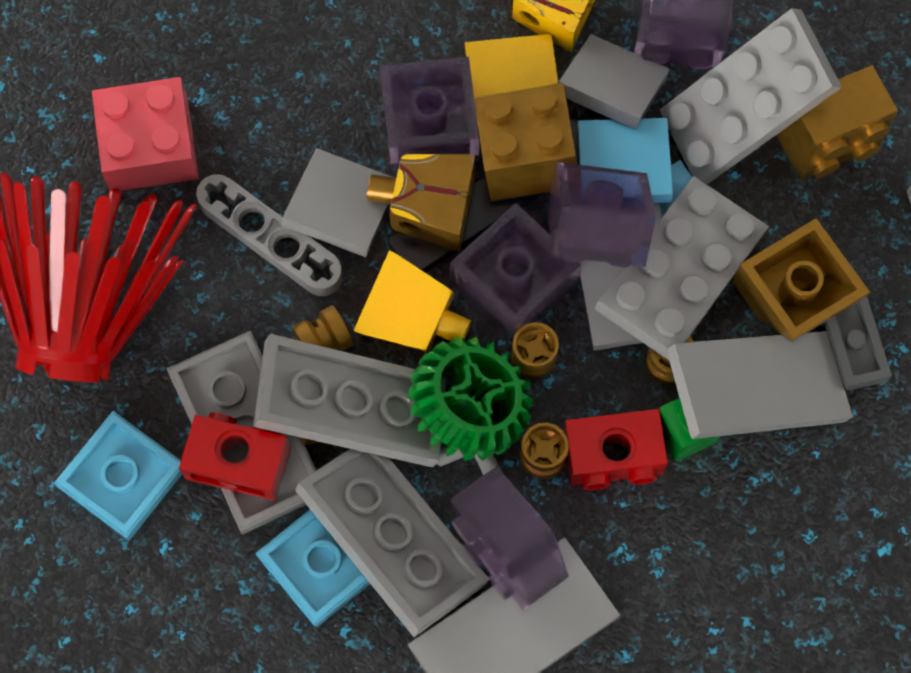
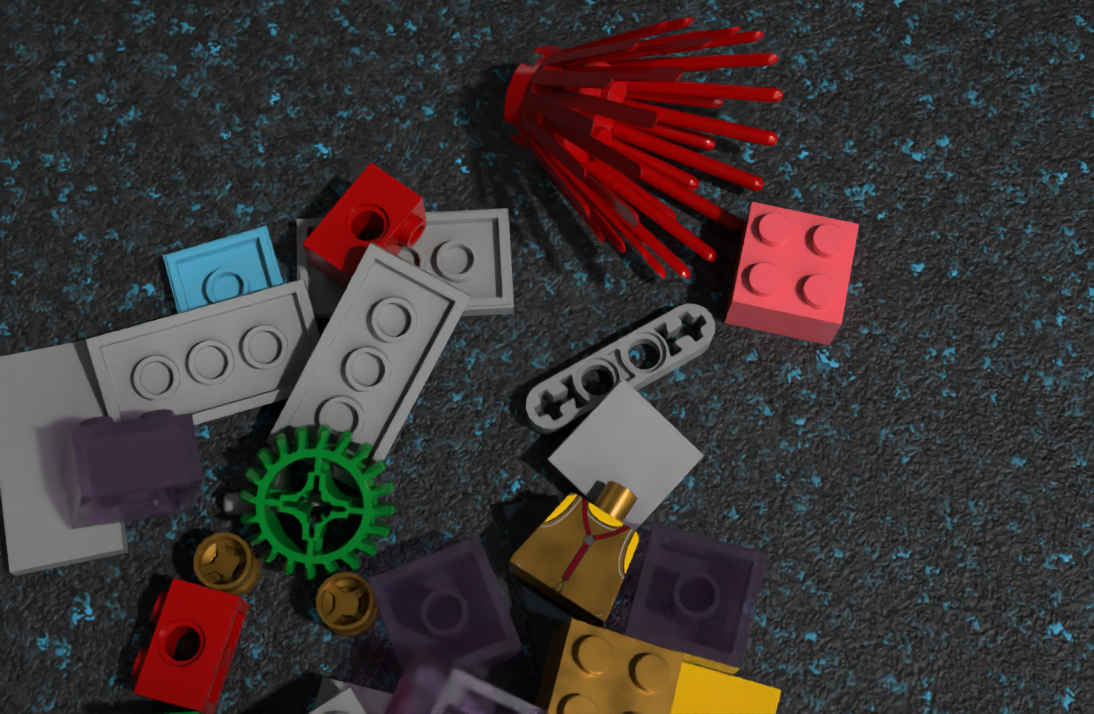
camera: 110 degrees right, 0 degrees up
(120, 475) = (415, 128): medium azure tile -> none
(325, 331) = (471, 377): pearl gold wheel -> none
(409, 308) = (458, 481): yellow torso -> none

